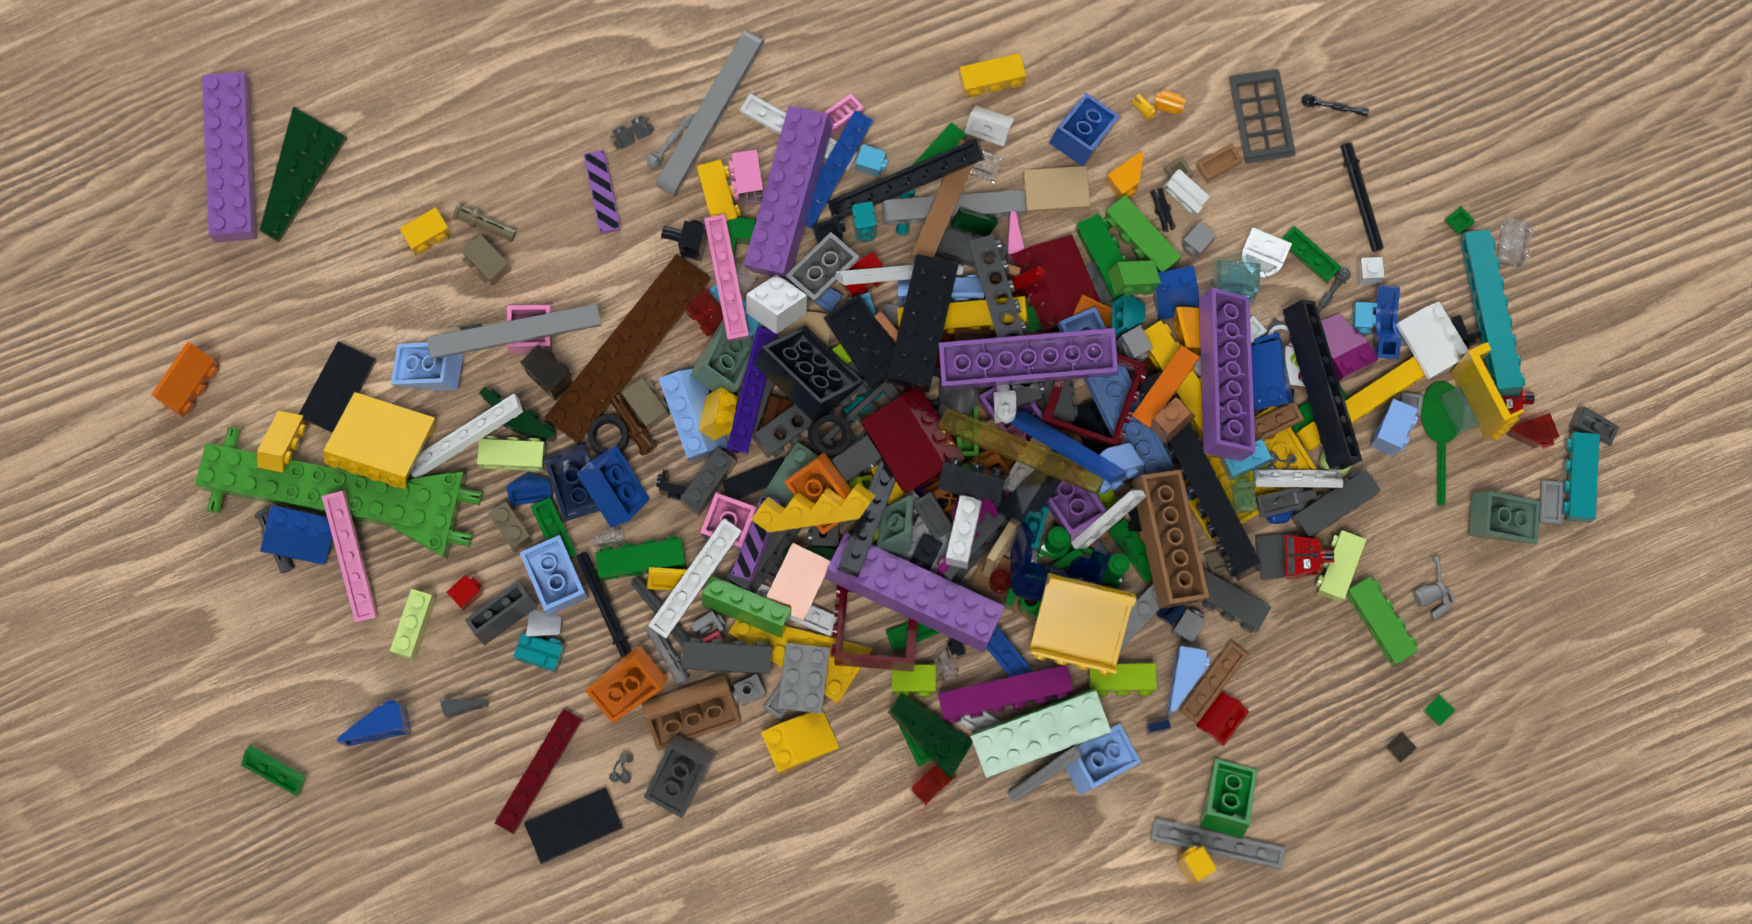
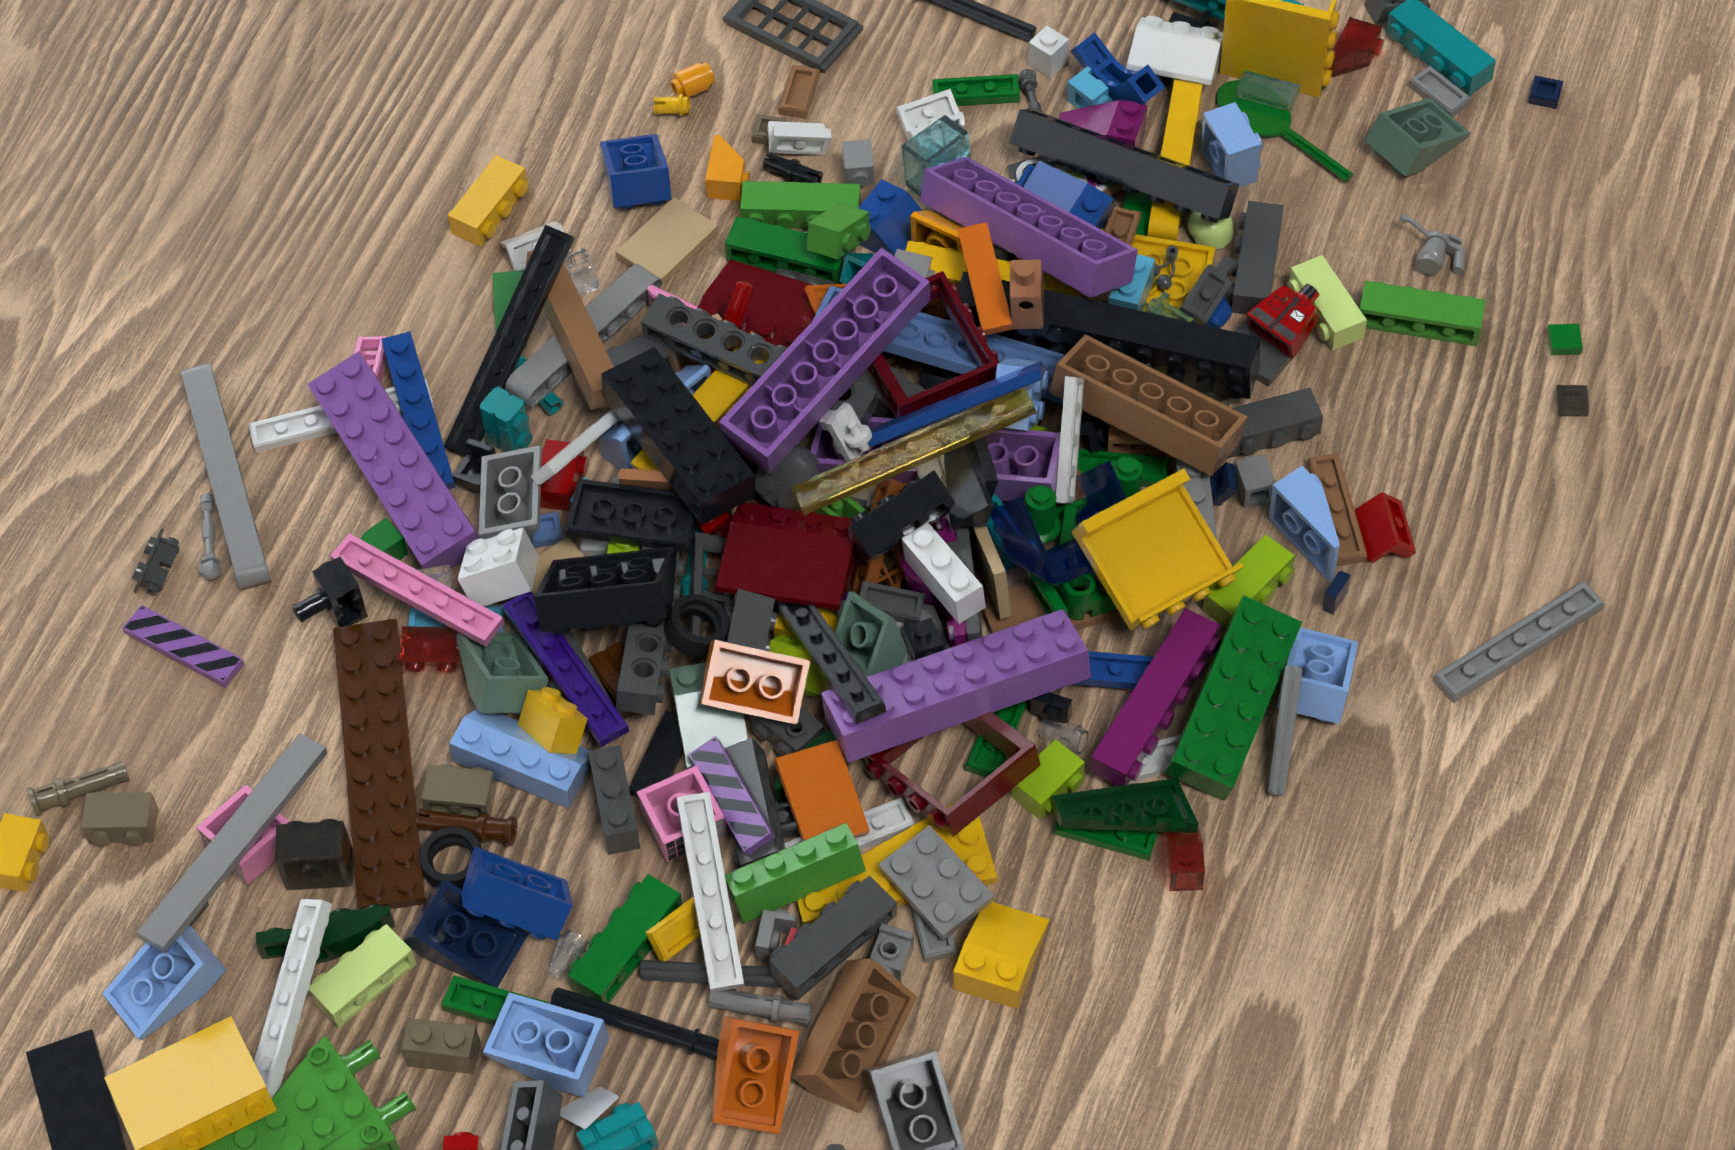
camera: 45 degrees left, 20 degrees down
(529, 489) = (421, 991): blue slope -> none
(673, 491) = (582, 845): black bracket -> none
(717, 191) = (308, 531): yellow brick -> none
(747, 177) = (335, 488): bright pink brick -> none
(804, 513) = (777, 680): yellow brick -> none
(871, 161) = (449, 371): medium azure brick -> none
(974, 222) = (619, 327): dark green tile -> none
(997, 578) = (1026, 604): clear red wheel -> none
(1196, 864) = (1528, 662): yellow brick -> none
(1229, 798) = (1481, 589): green slope -> none
(1298, 478) = (1199, 259): white tile -> none
(1607, 560) = (1545, 92): none -> dark blue tile

